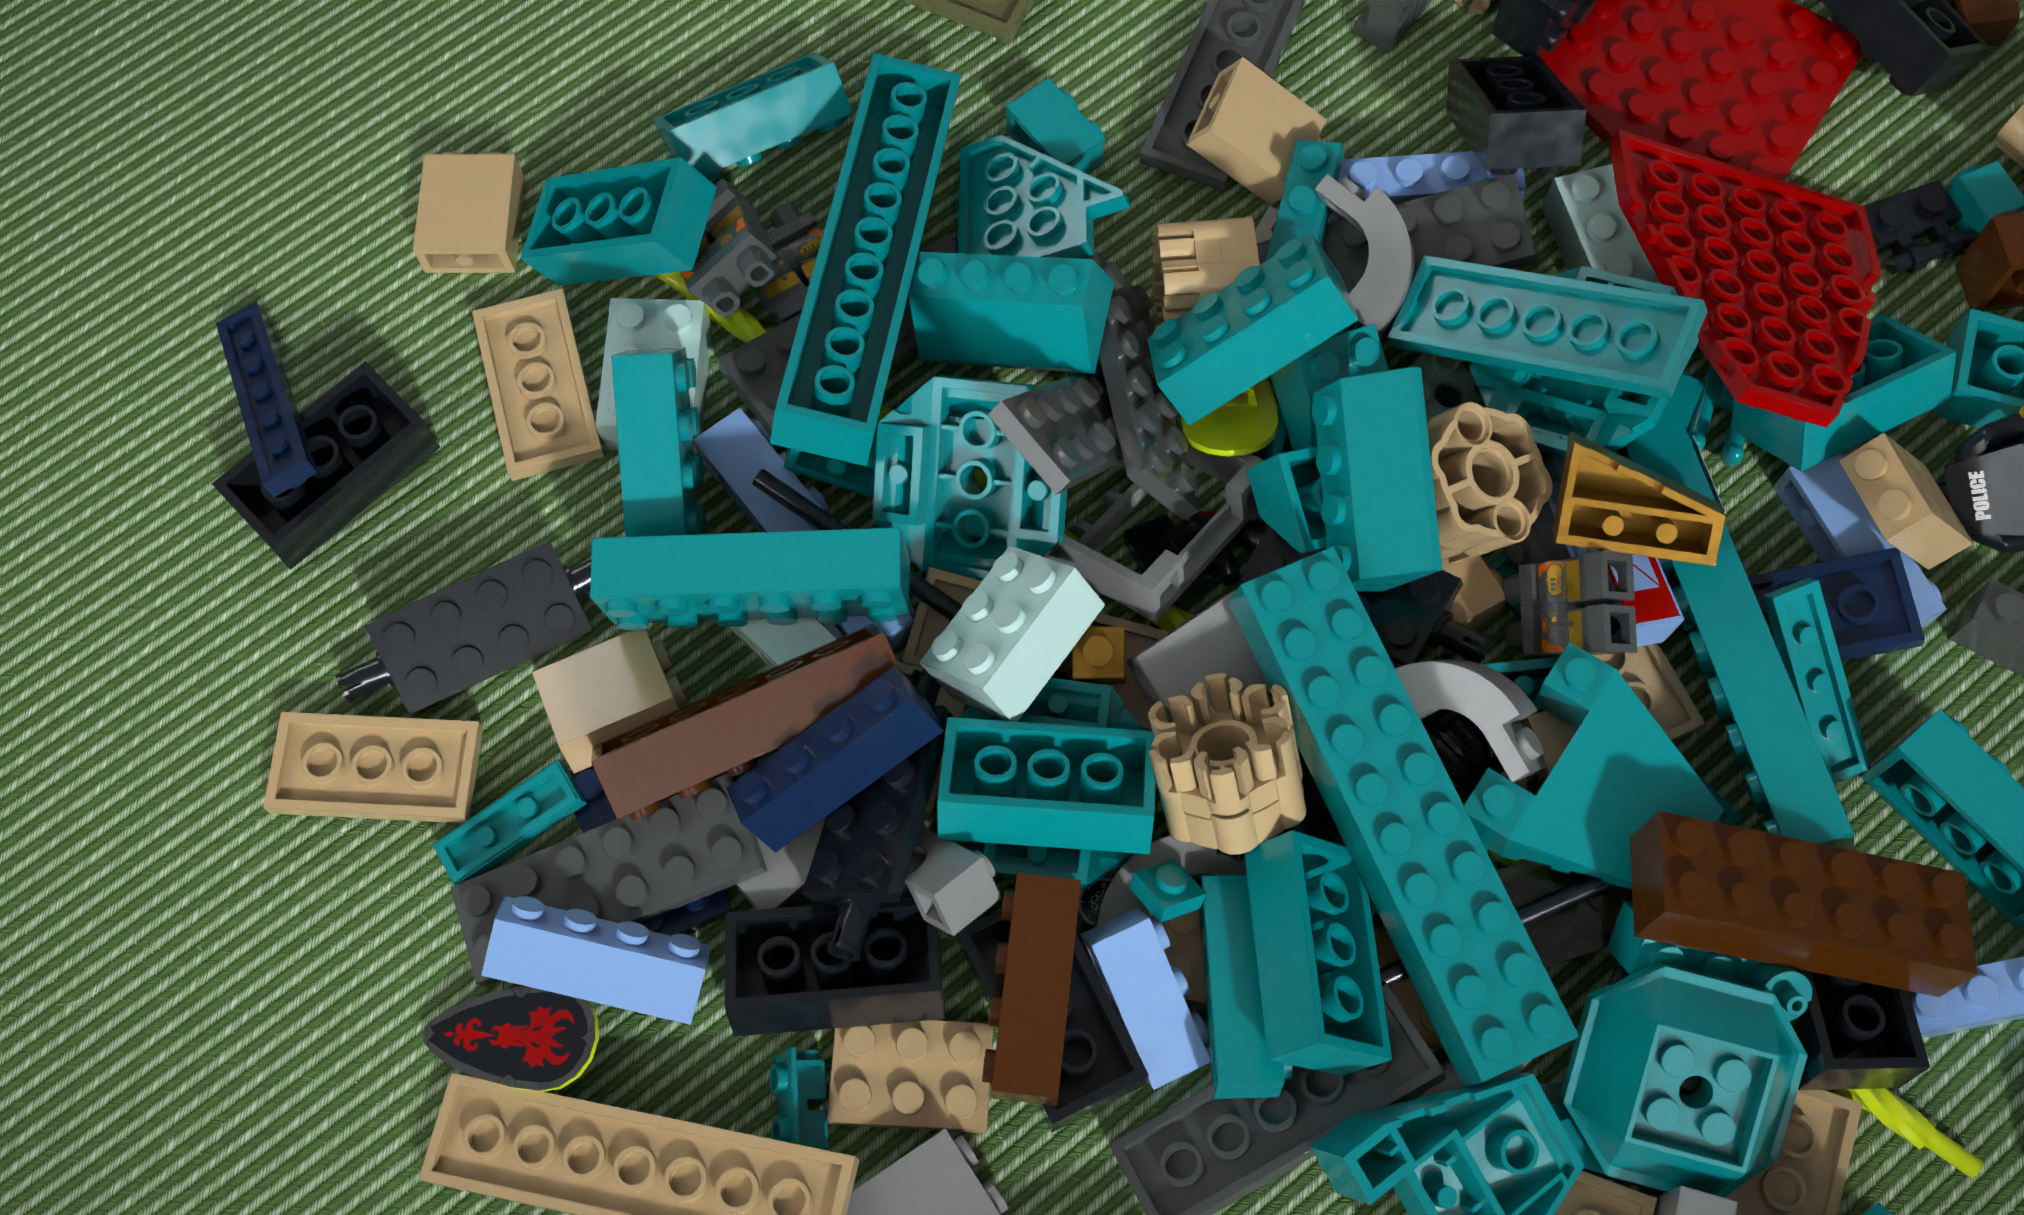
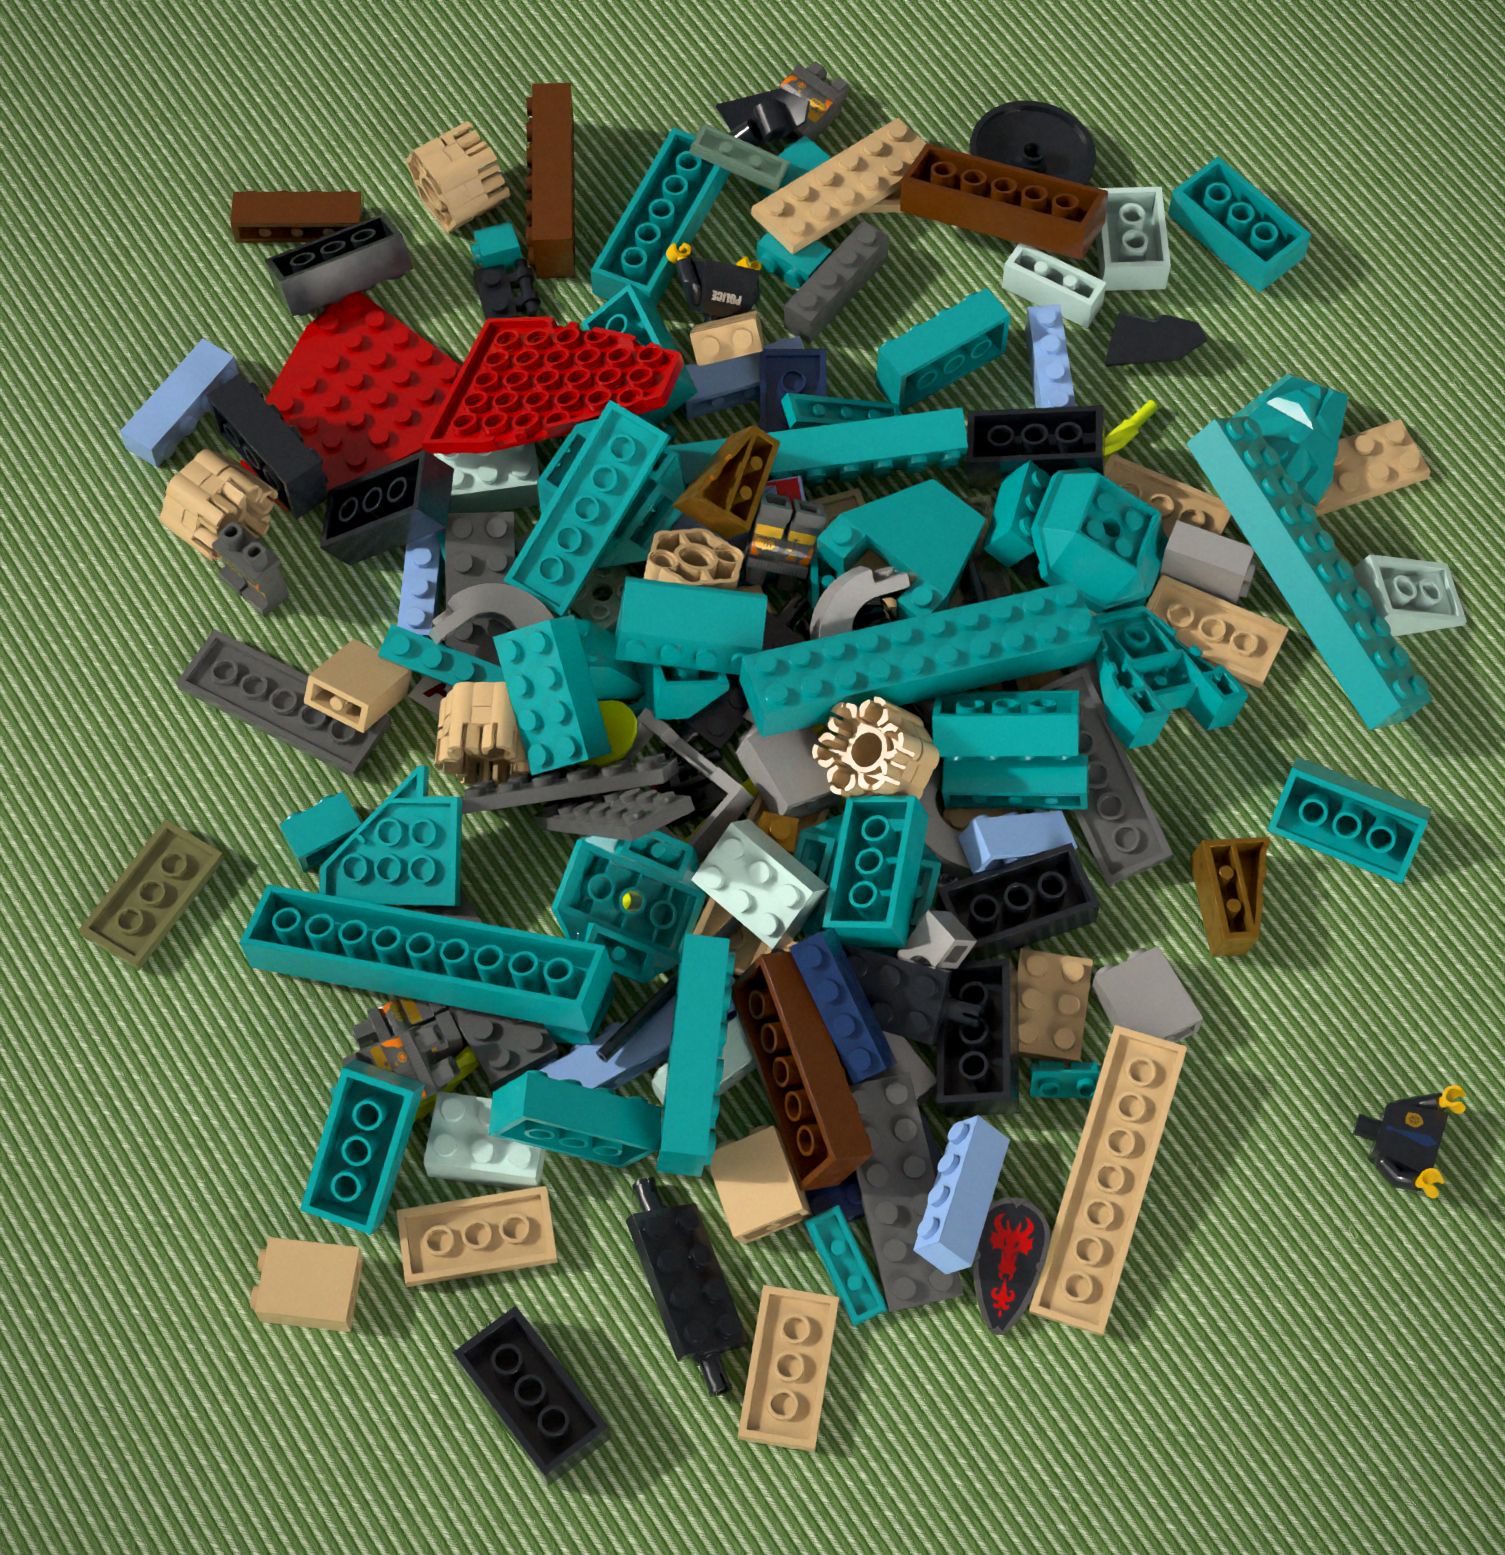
camera: 85 degrees left, 5 degrees down
(266, 400) = (472, 1431): dark blue plate -> none
(756, 116) = (258, 1055): teal slope -> none
(1009, 311) = (503, 857): teal slope -> none
(1035, 989) = (1014, 897): reddish brown brick -> none
(1167, 890) = (951, 812): teal plate -> none
(1788, 985) = (1048, 466): teal tile -> none
(1800, 904) = (1002, 448): reddish brown brick -> none

